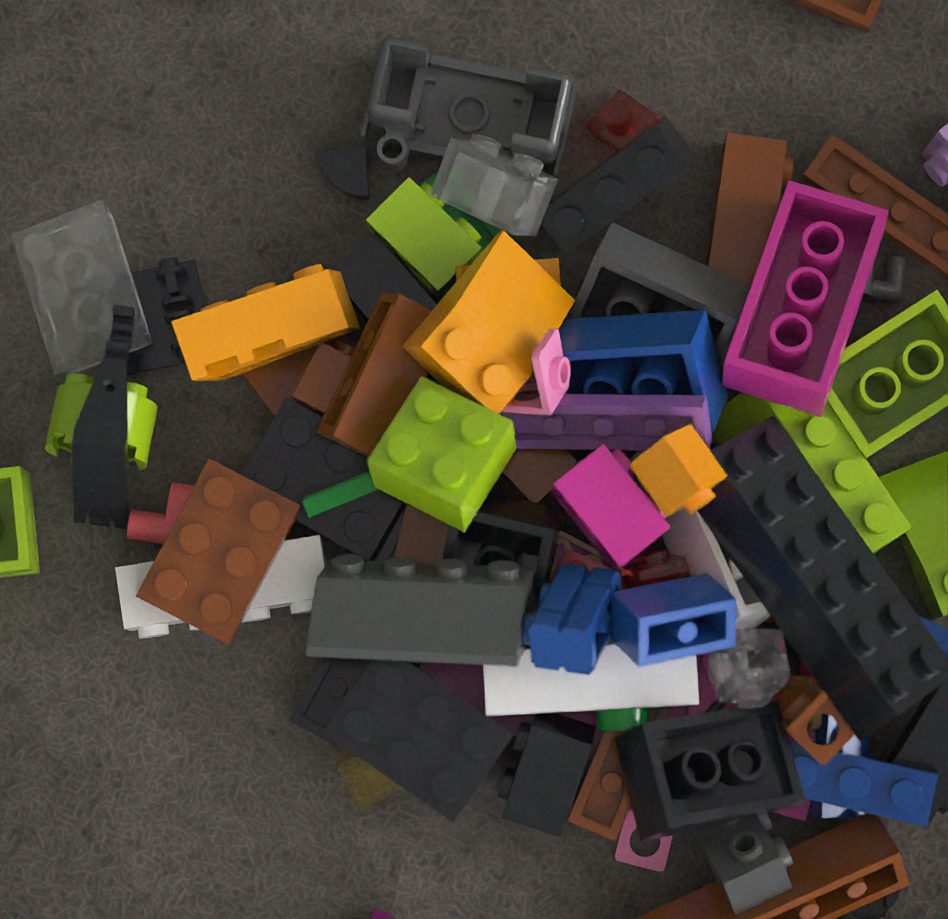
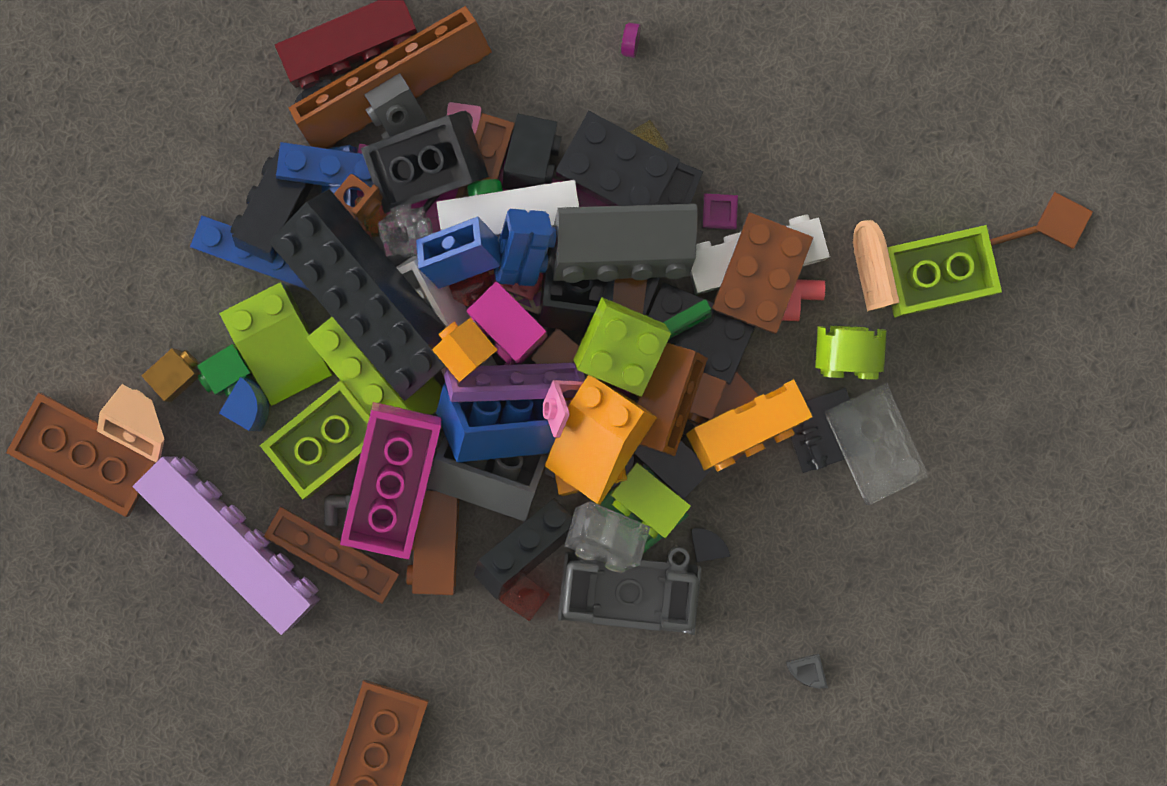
camera: 175 degrees right, 5 degrees up
(50, 547) = (874, 266): none -> light nougat window
(102, 433) = (849, 341): black hinge -> none
(270, 659) = (720, 211): none -> magenta tile

